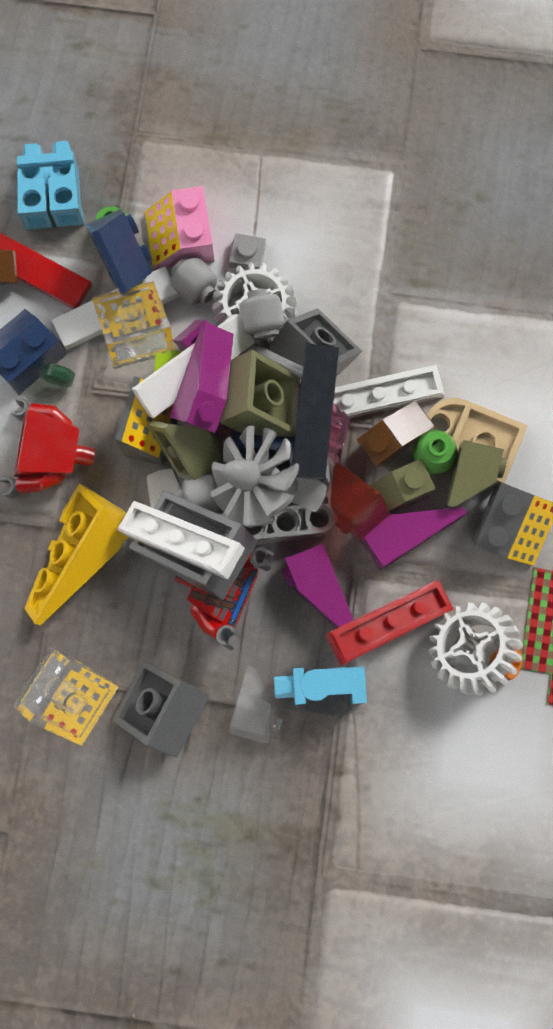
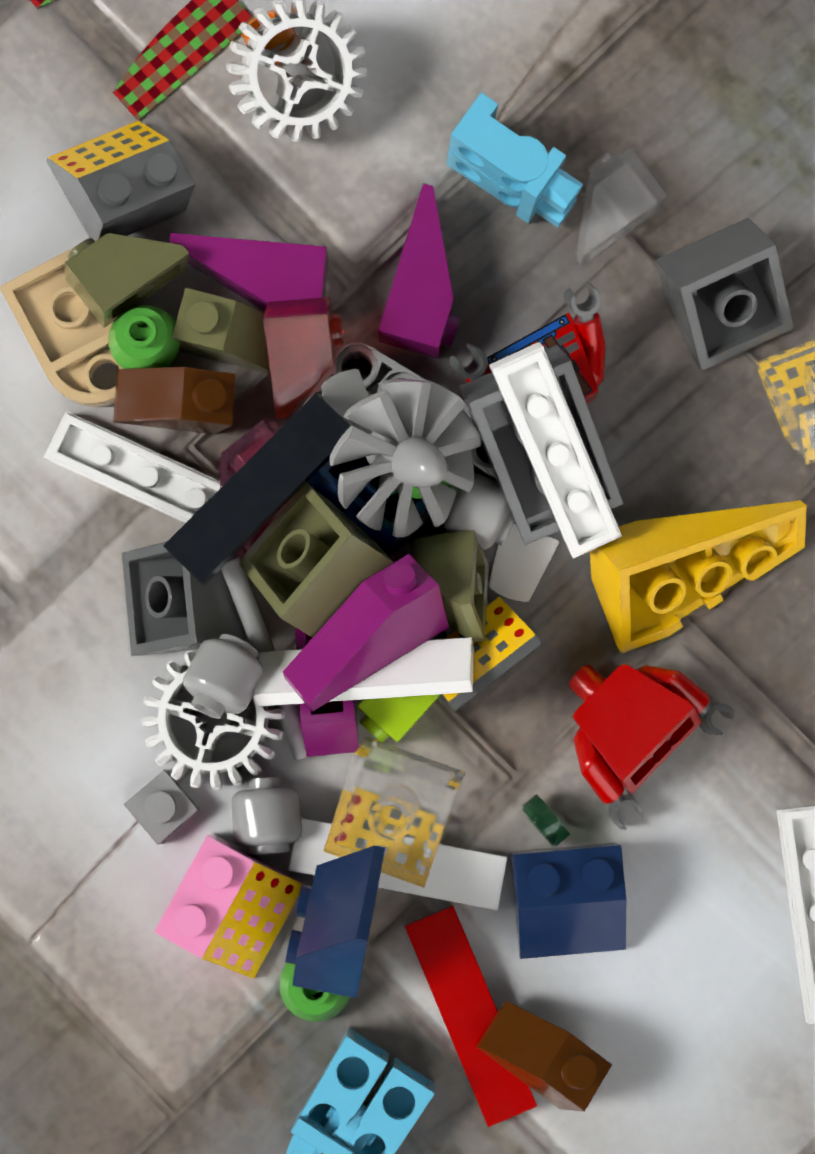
camera: 140 degrees left, 5 degrees up
(388, 622) = (372, 178): red tile -> none

